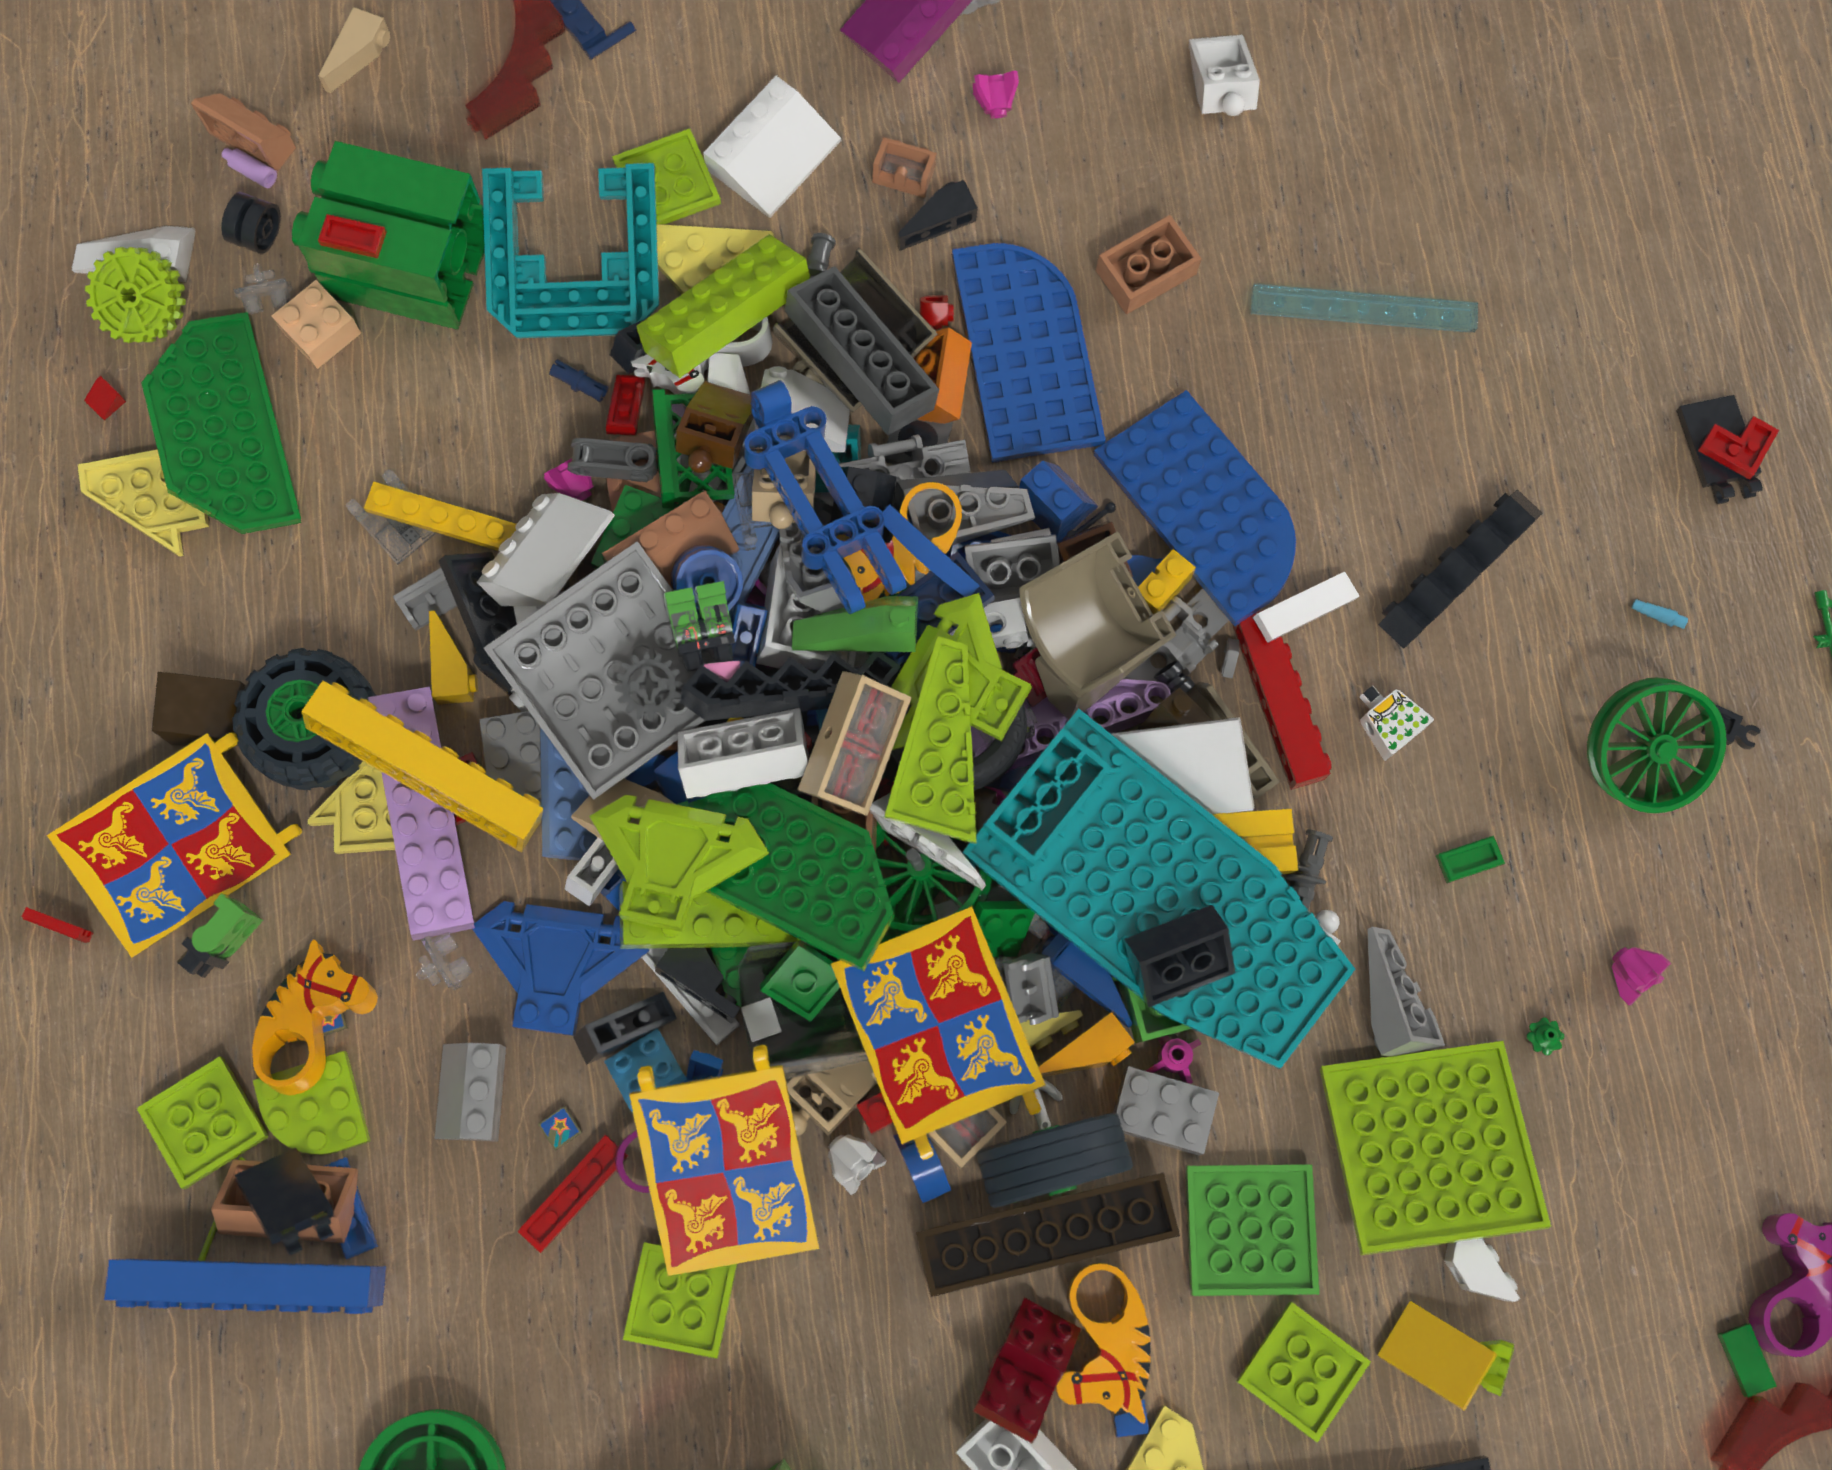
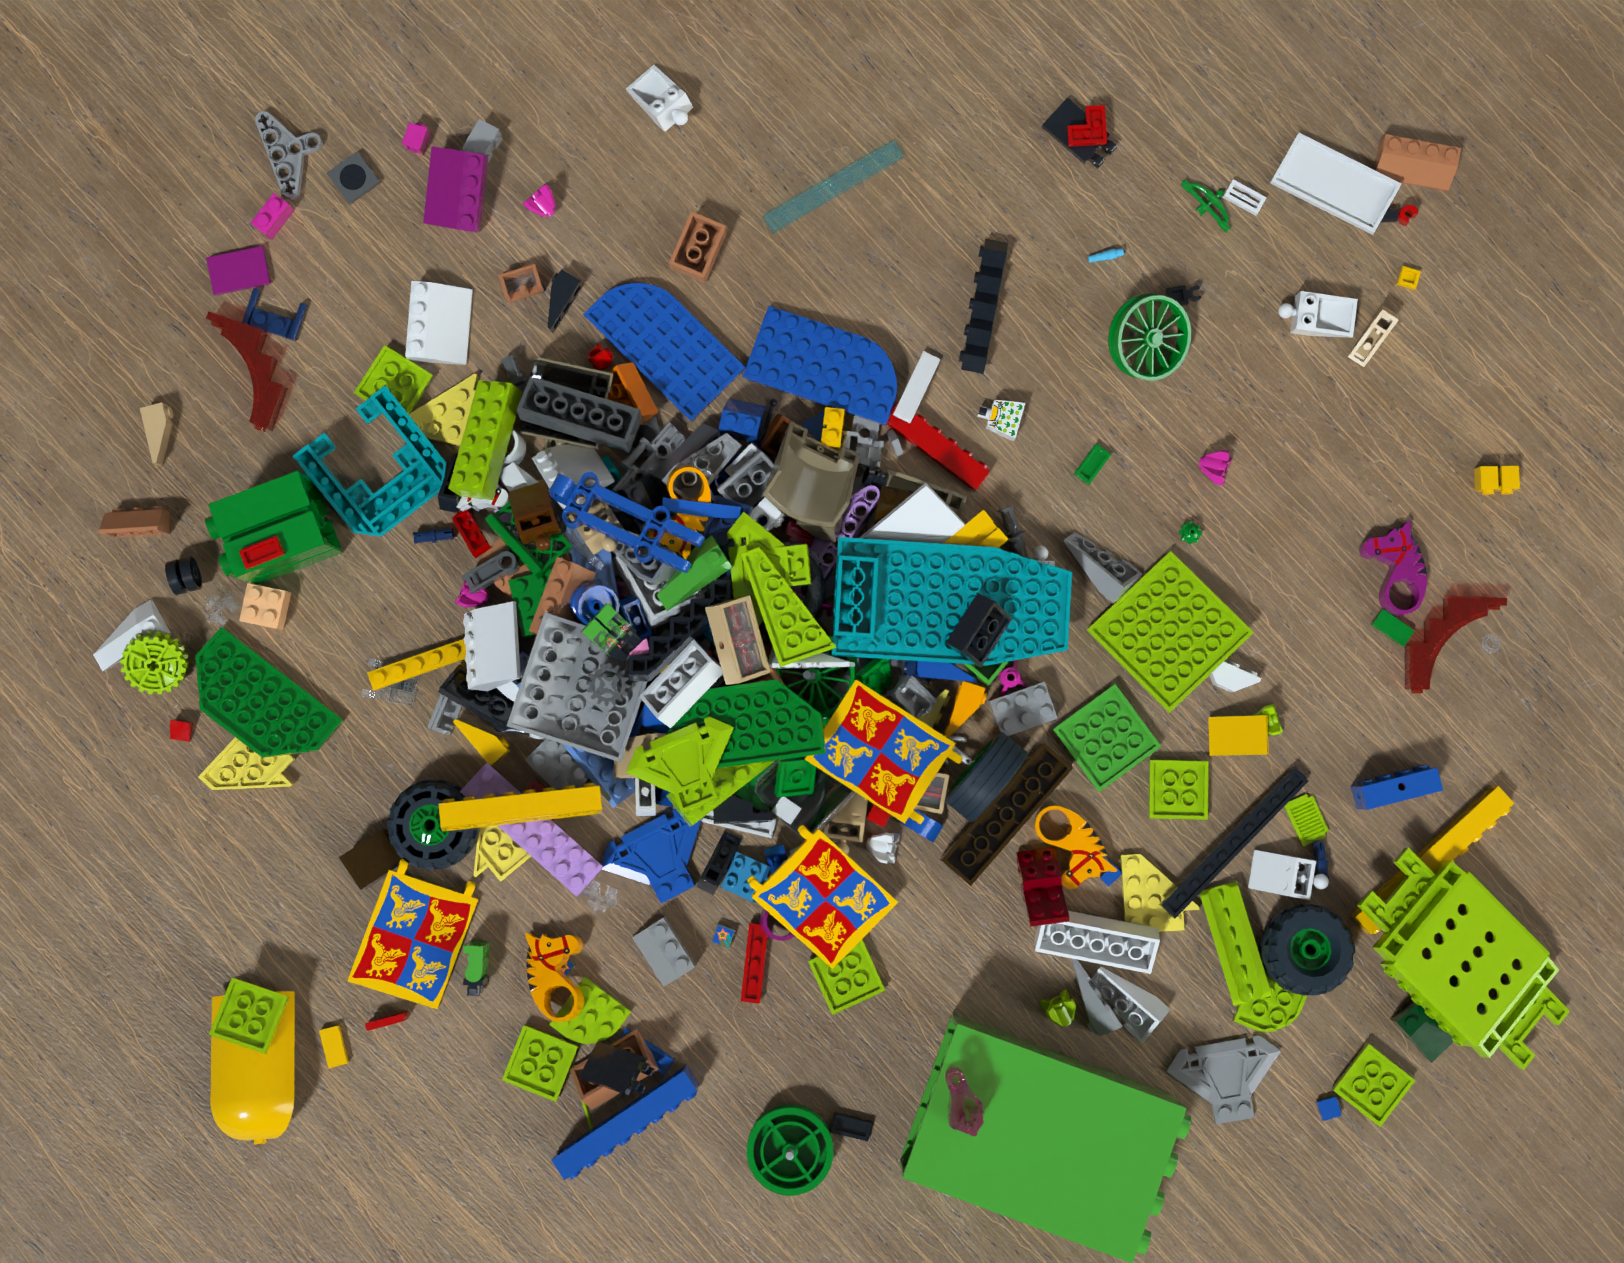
camera: 30 degrees left, 10 degrees up
(250, 167) = (154, 542): lavender cylinder -> none

